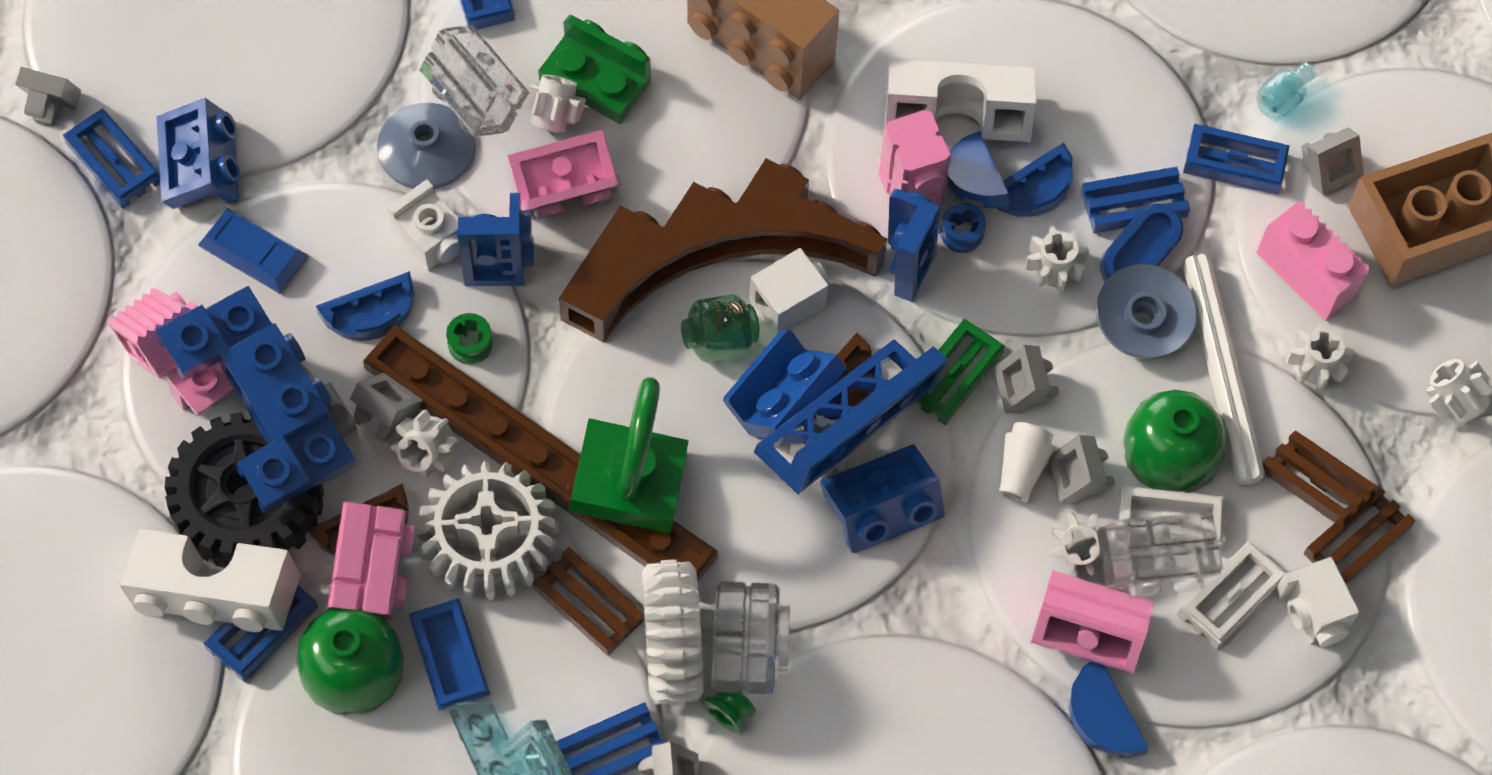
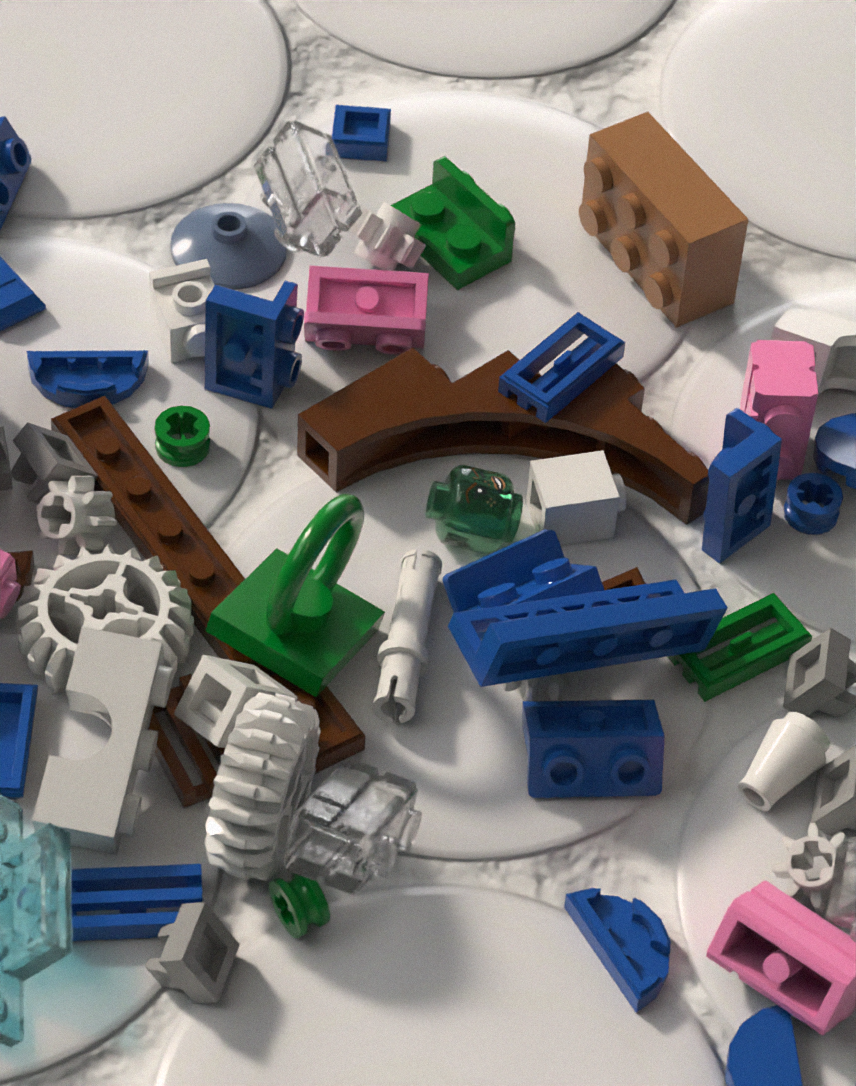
camera: 20 degrees right, 15 degrees down
(537, 588) = (121, 684): none -> white arch
(615, 567) = (219, 694): none -> white brick
(717, 472) = (404, 654): none -> white pin
(729, 219) = (571, 371): none -> blue tile
(967, 646) = (626, 940): none -> blue tile

